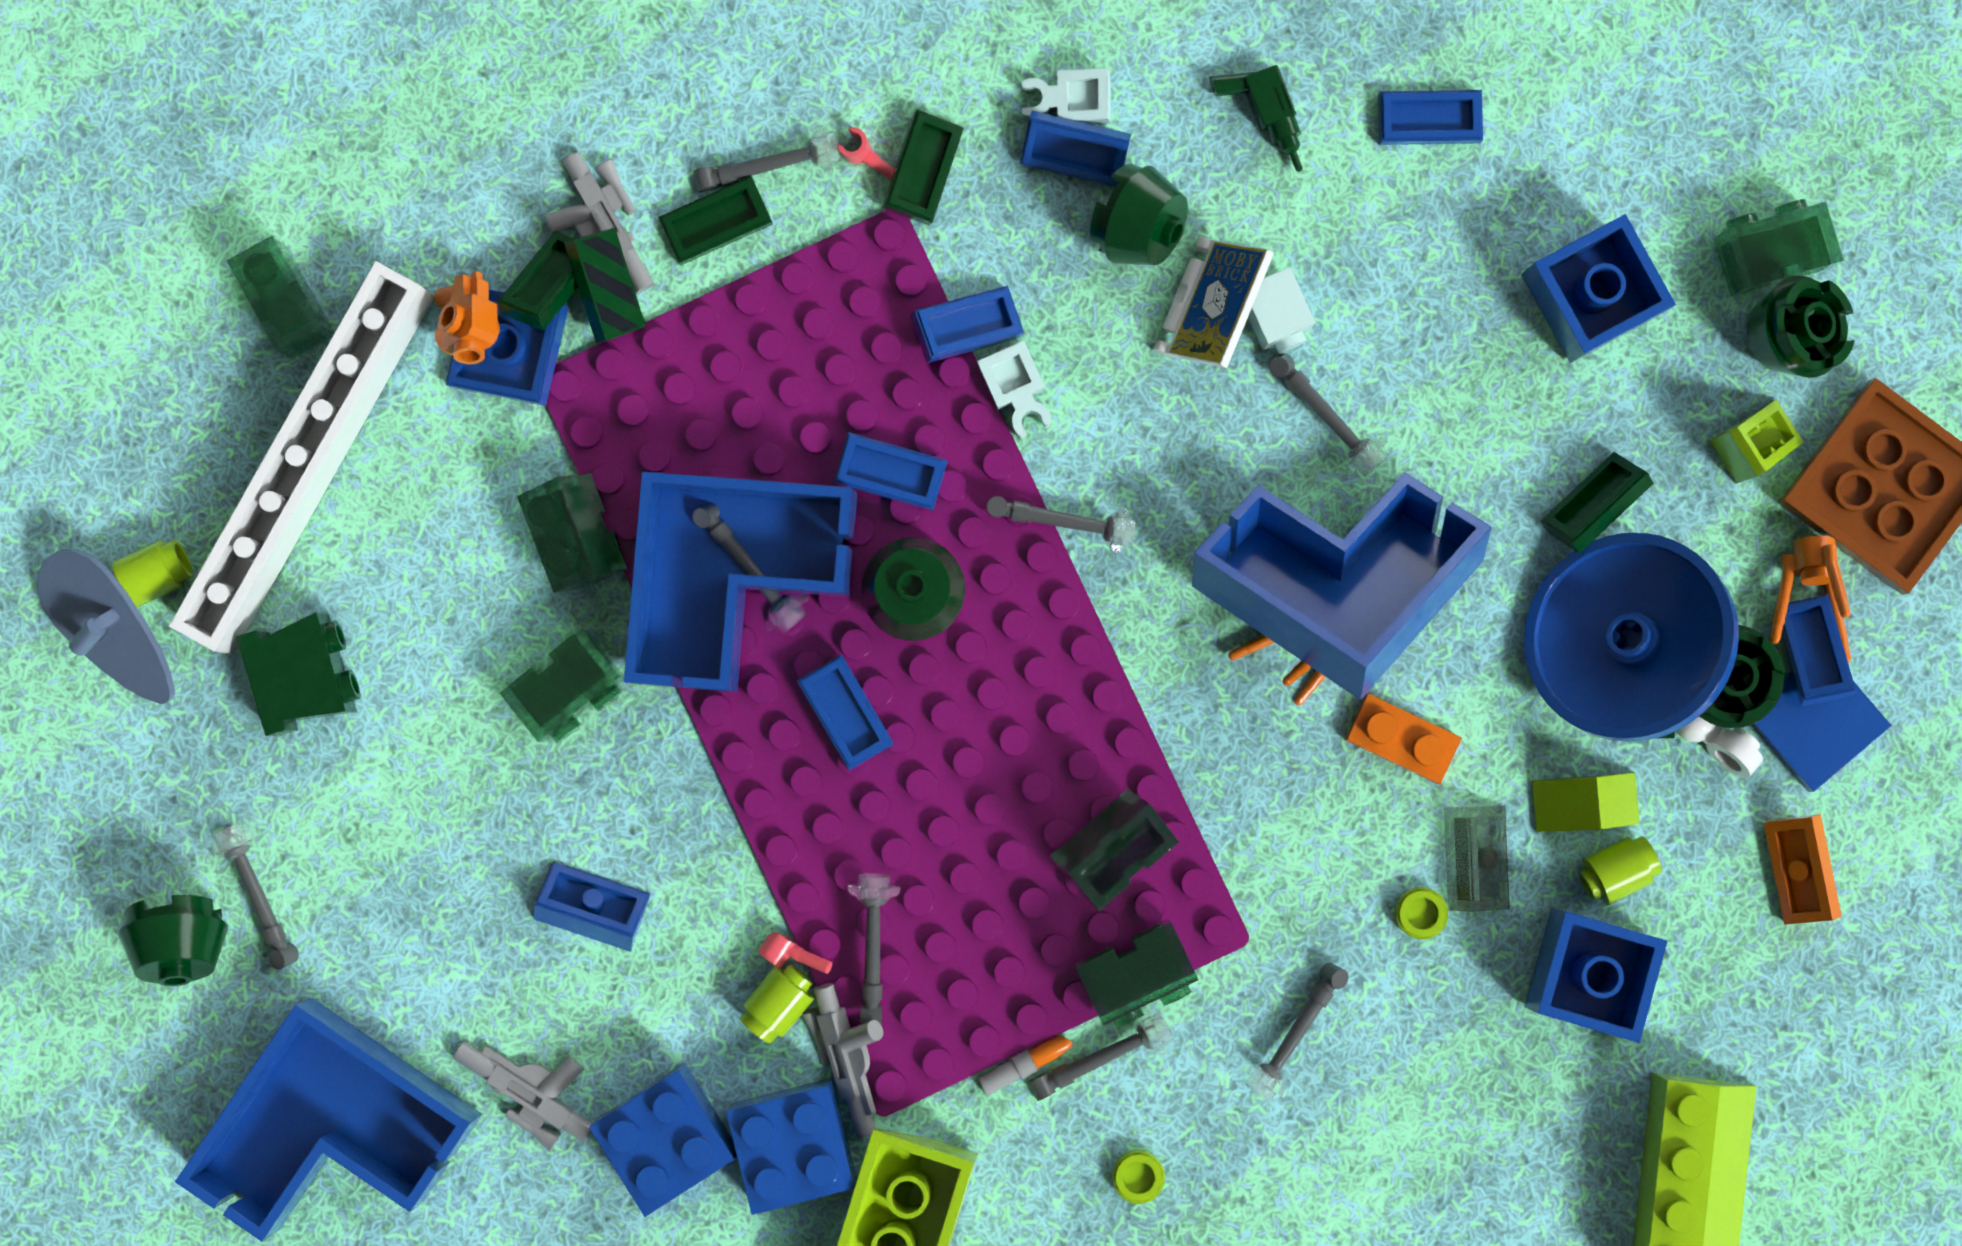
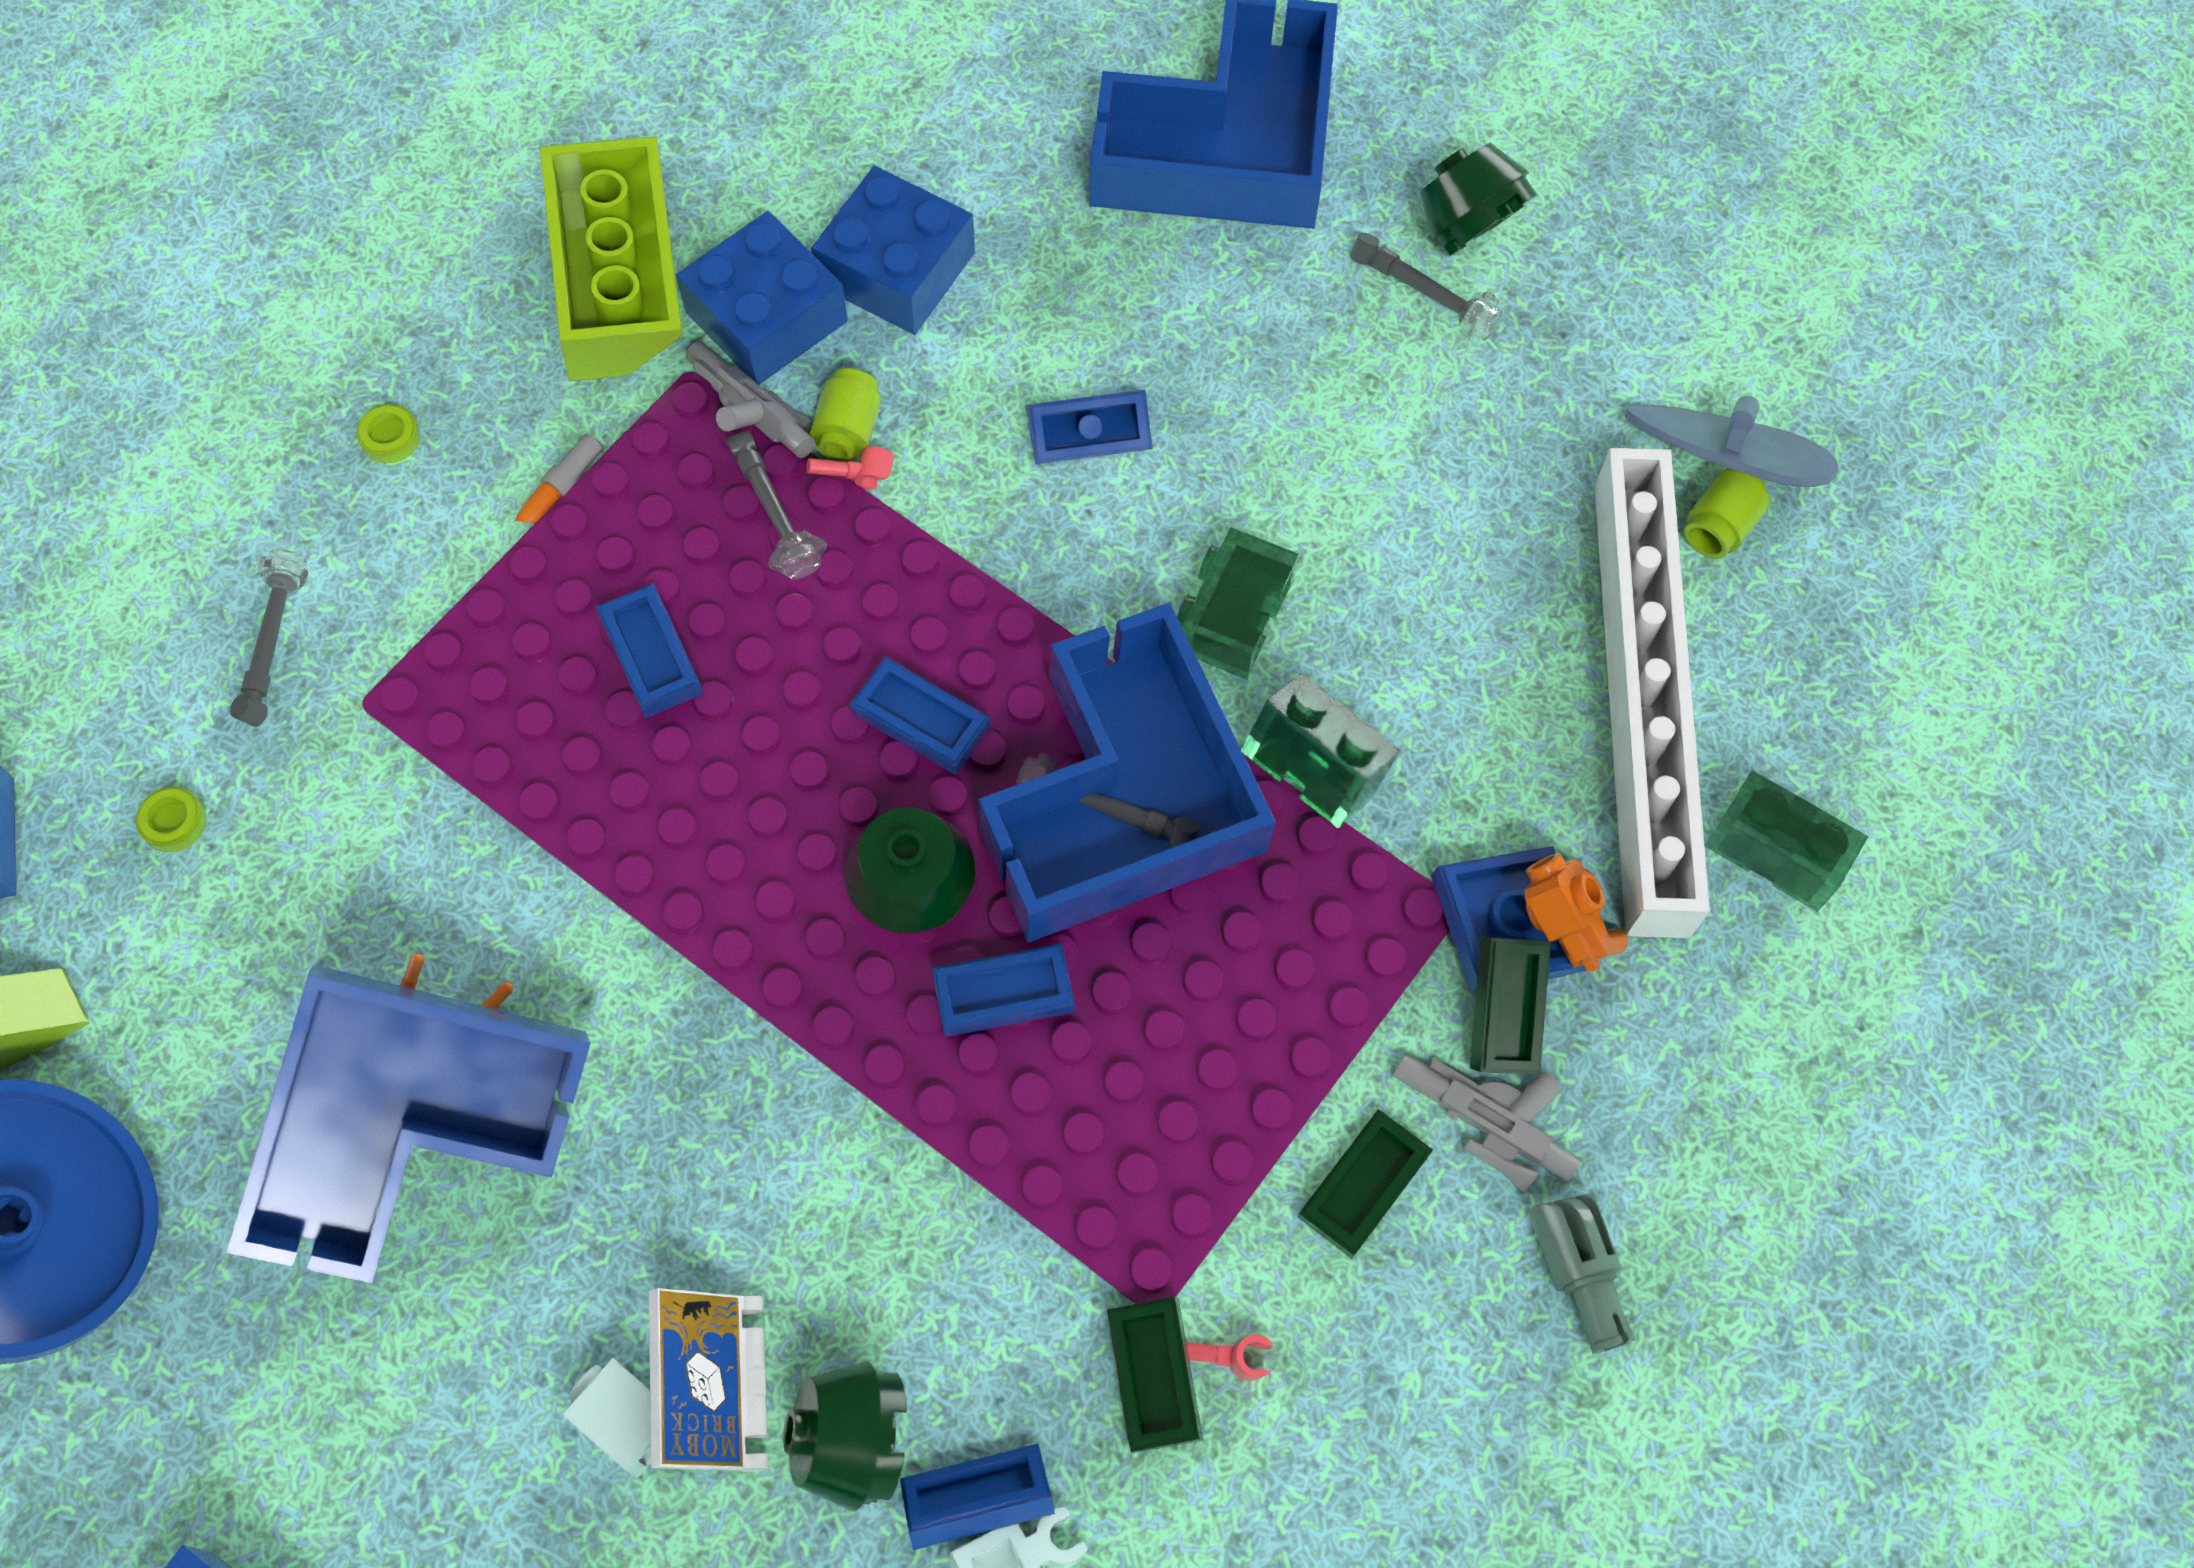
camera: 150 degrees right, 20 degrees down
(298, 673) = (1515, 488): dark green hips -> none
(532, 1088) = (1053, 245): light grey piece -> none
(604, 89) = (1584, 1265): none -> sand green arm
(605, 285) = (1445, 1032): dark green tile -> none
(820, 149) = (1289, 1327): dark grey piece -> none
(967, 324) = (1001, 1206): blue tile -> none
(1013, 381) = (912, 1168): light aqua plate -> none
(1020, 869) = (649, 650): none -> blue tile
(1114, 849) = (548, 699): brick -> none
(1116, 529) = (706, 1055): dark grey piece -> none
(1138, 976) = (467, 598): clear green brick -> none
(1152, 1033) = (431, 565): dark grey piece -> none
(1363, 453) = (438, 1294): dark grey piece -> none
(1403, 739) = (250, 992): orange plate -> none
(1476, 858) = (125, 906): clear smoke slope -> none
(1597, 502) = (112, 1382): dark green tile -> none

